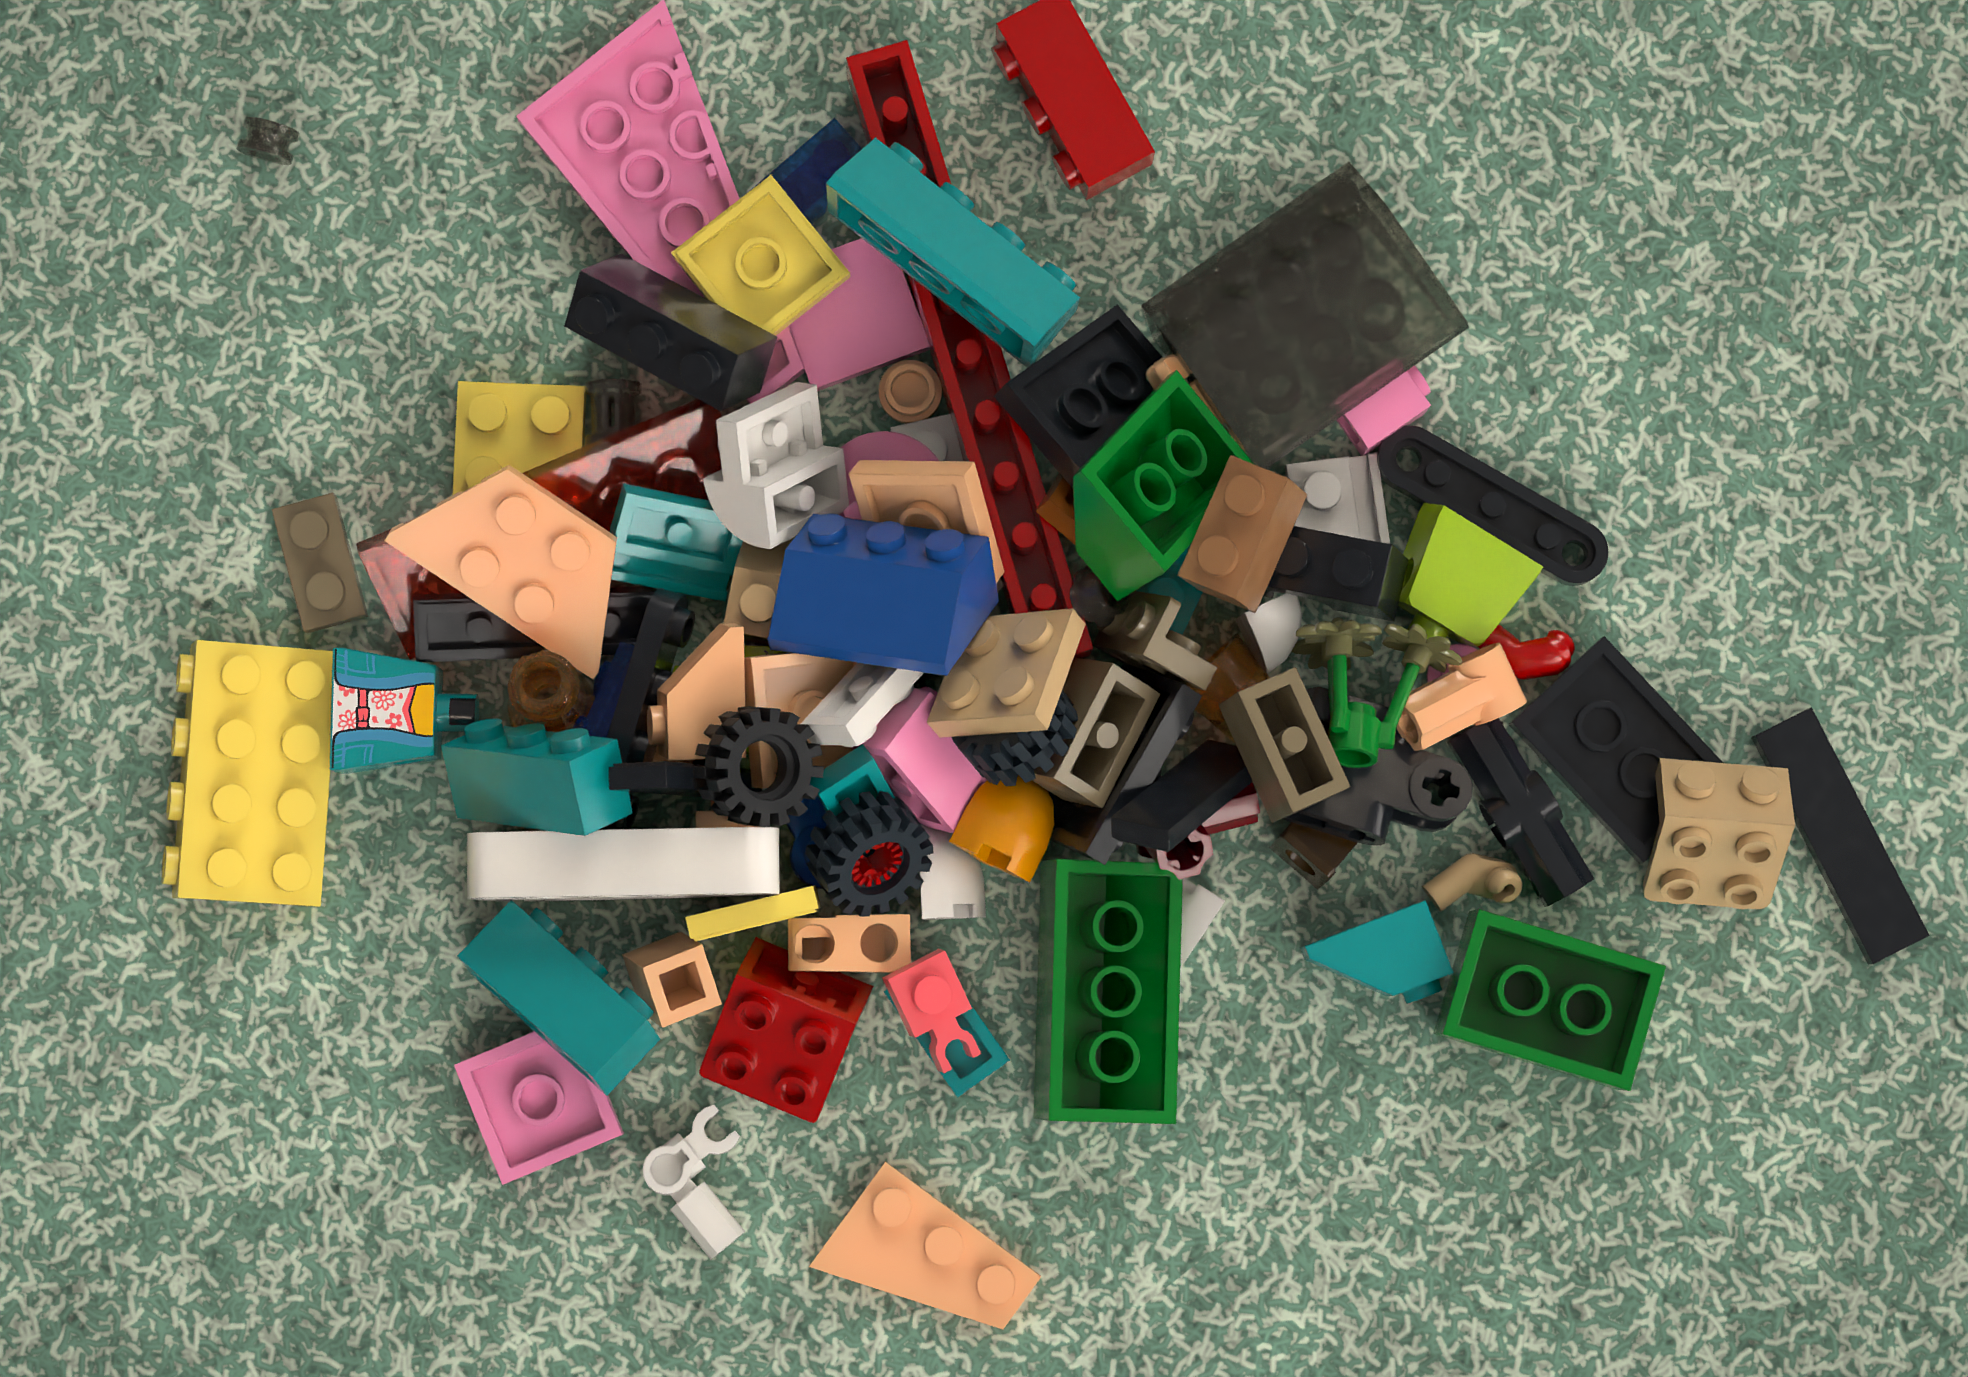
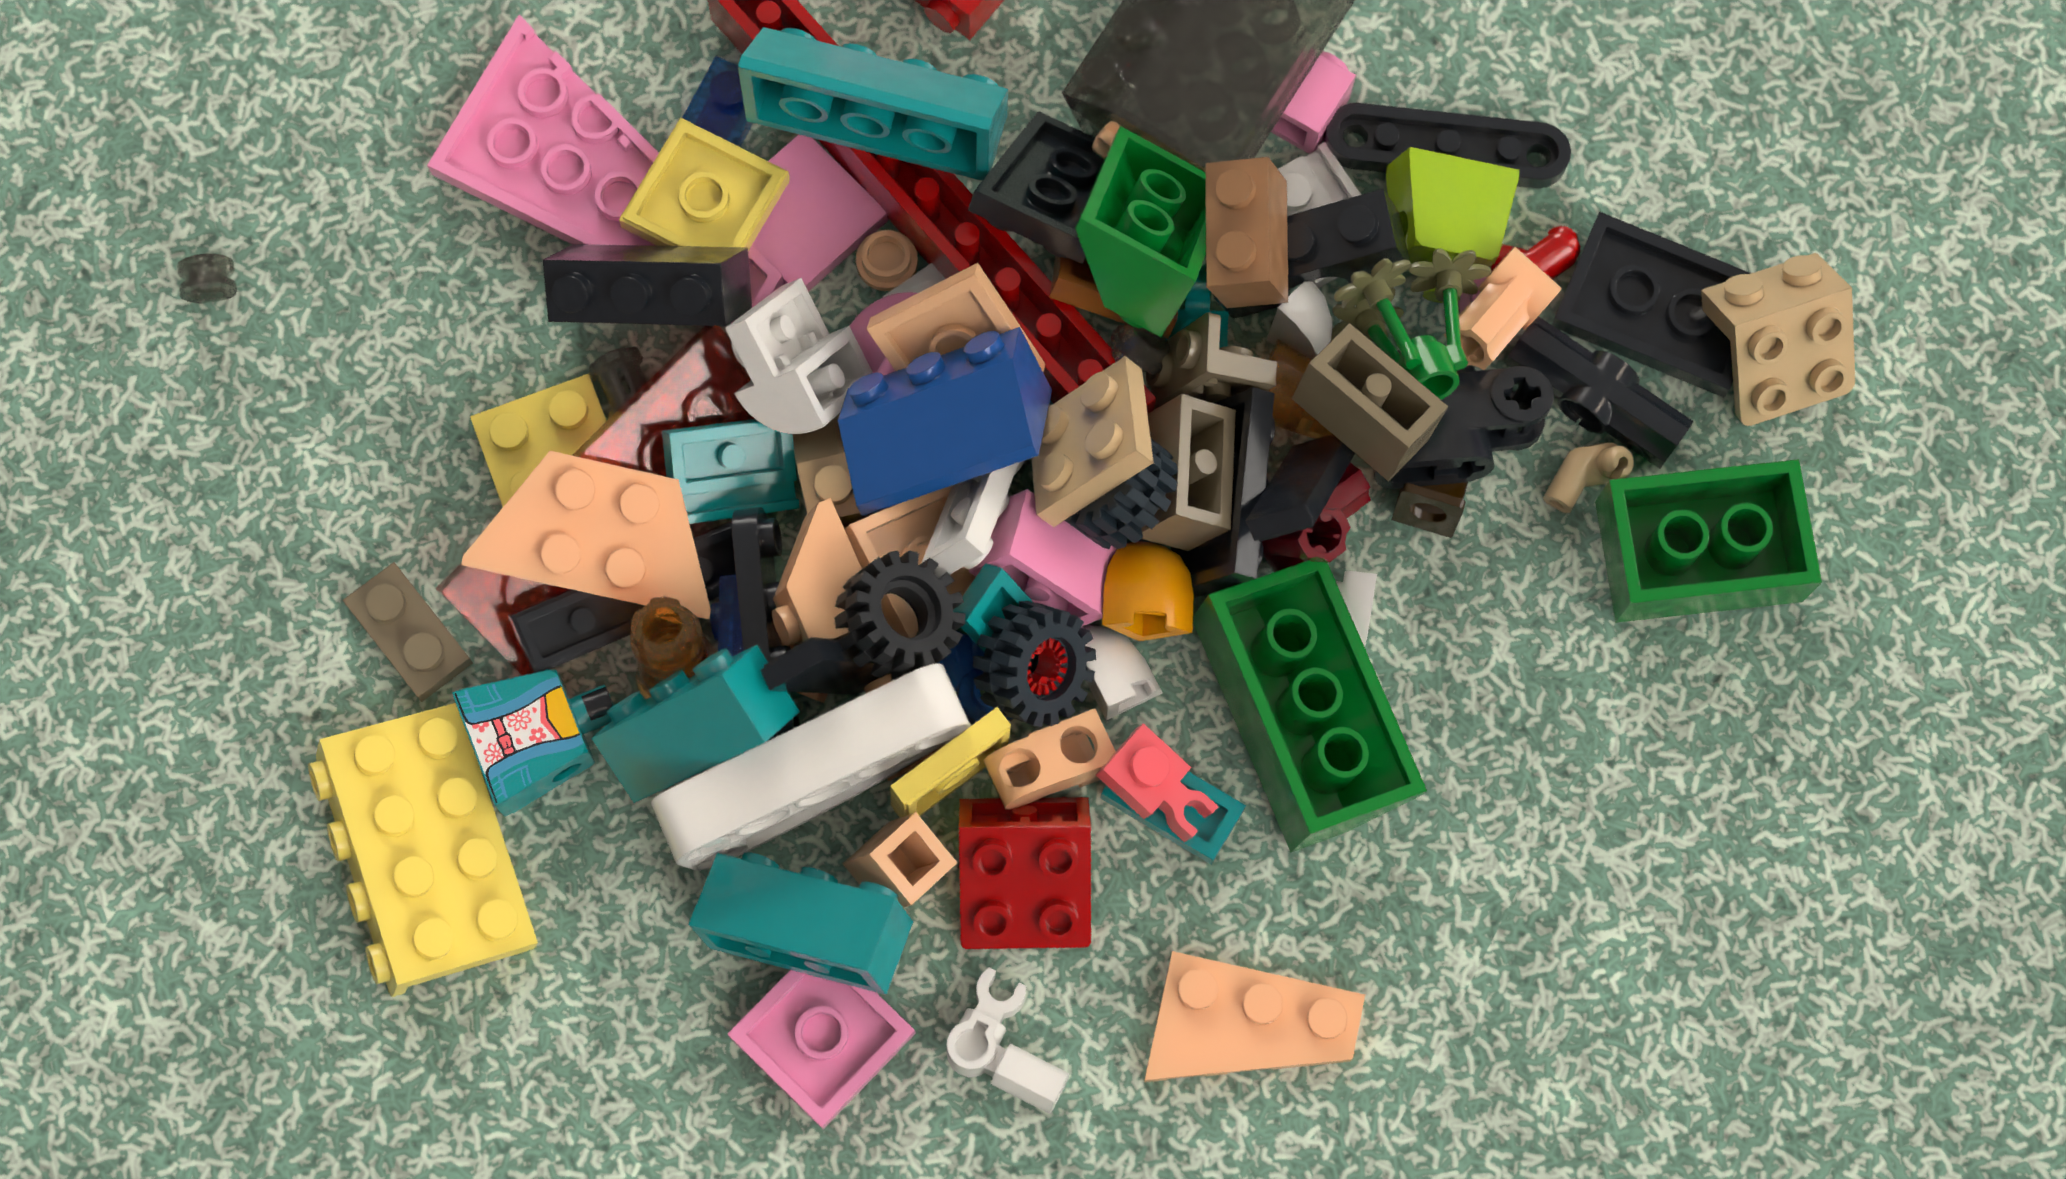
camera: 20 degrees left, 10 degrees down
(1387, 954) = (1541, 565): teal slope -> none
(1842, 838) = (1895, 303): black tile -> none

